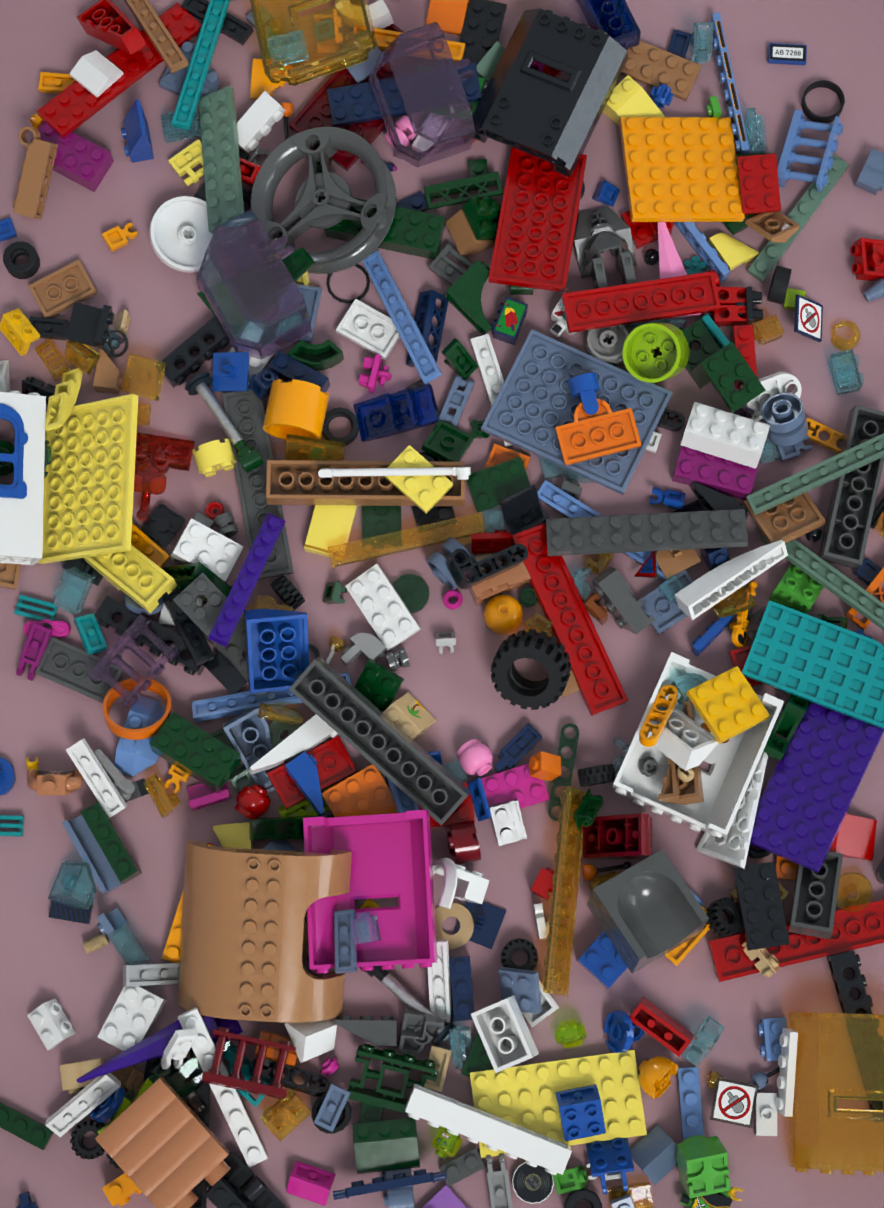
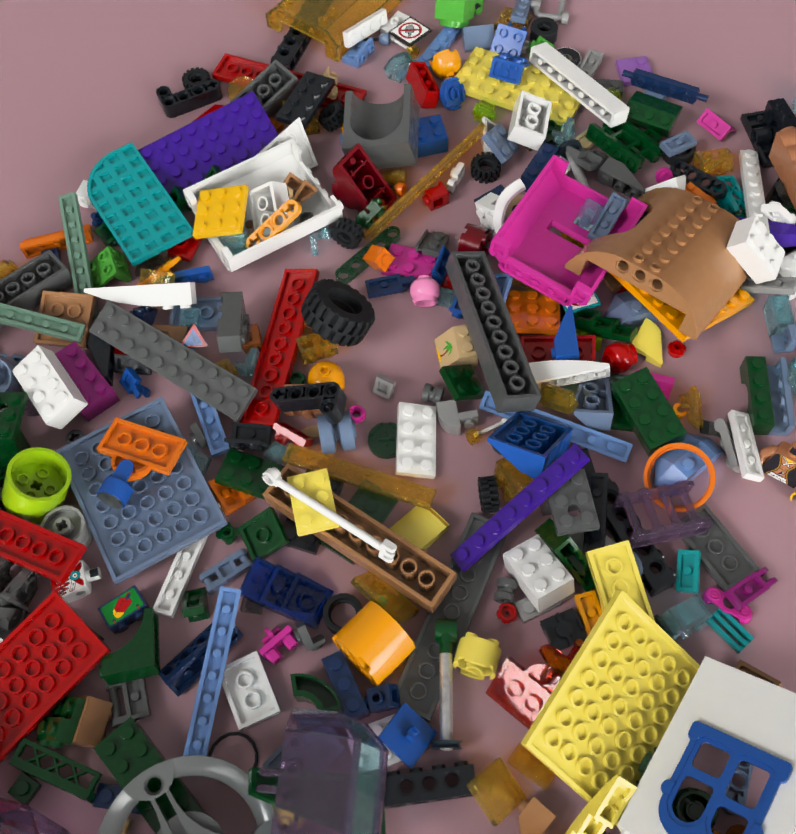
camera: 145 degrees left, 15 degrees down
(180, 987) = (756, 249): none -> white brick
(234, 1080) = (735, 172): dark red fence -> none
(332, 593) = (449, 475): dark green tile -> none
(350, 390) = (310, 643): none -> dark grey bracket

